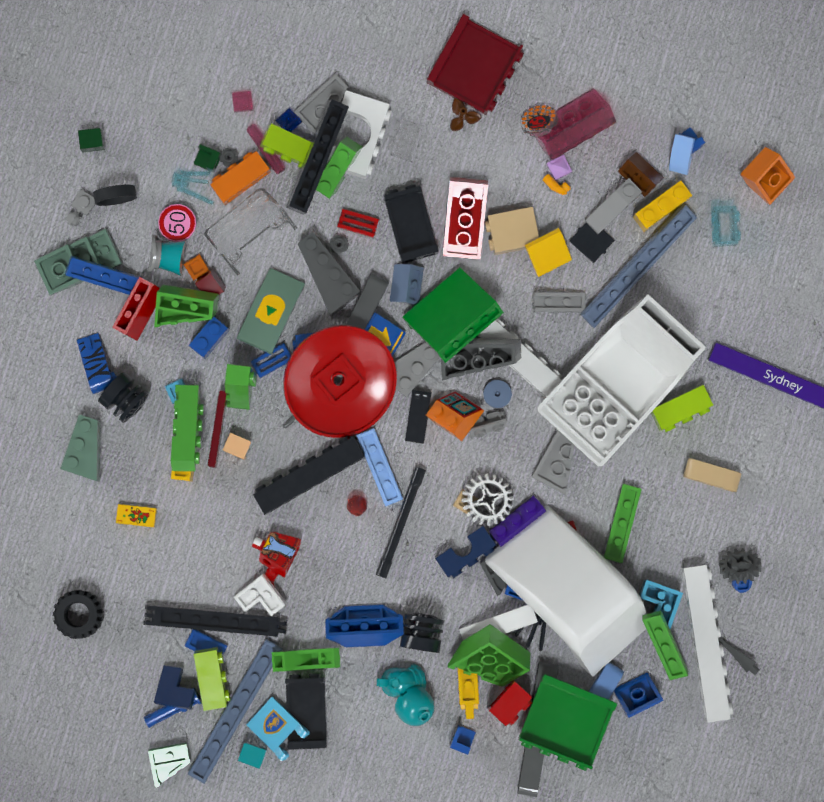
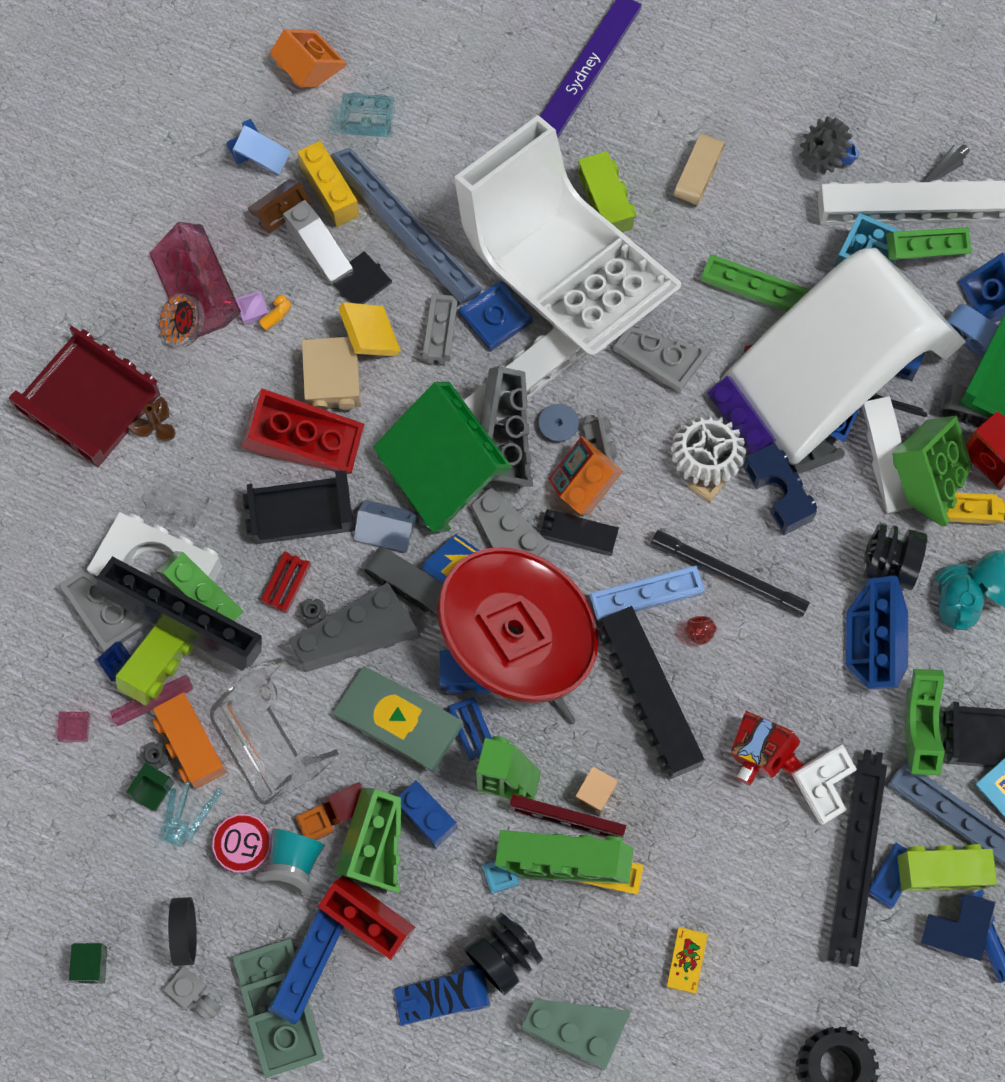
camera: 80 degrees left, 15 degrees down
(574, 339) = (495, 316): none -> blue tile

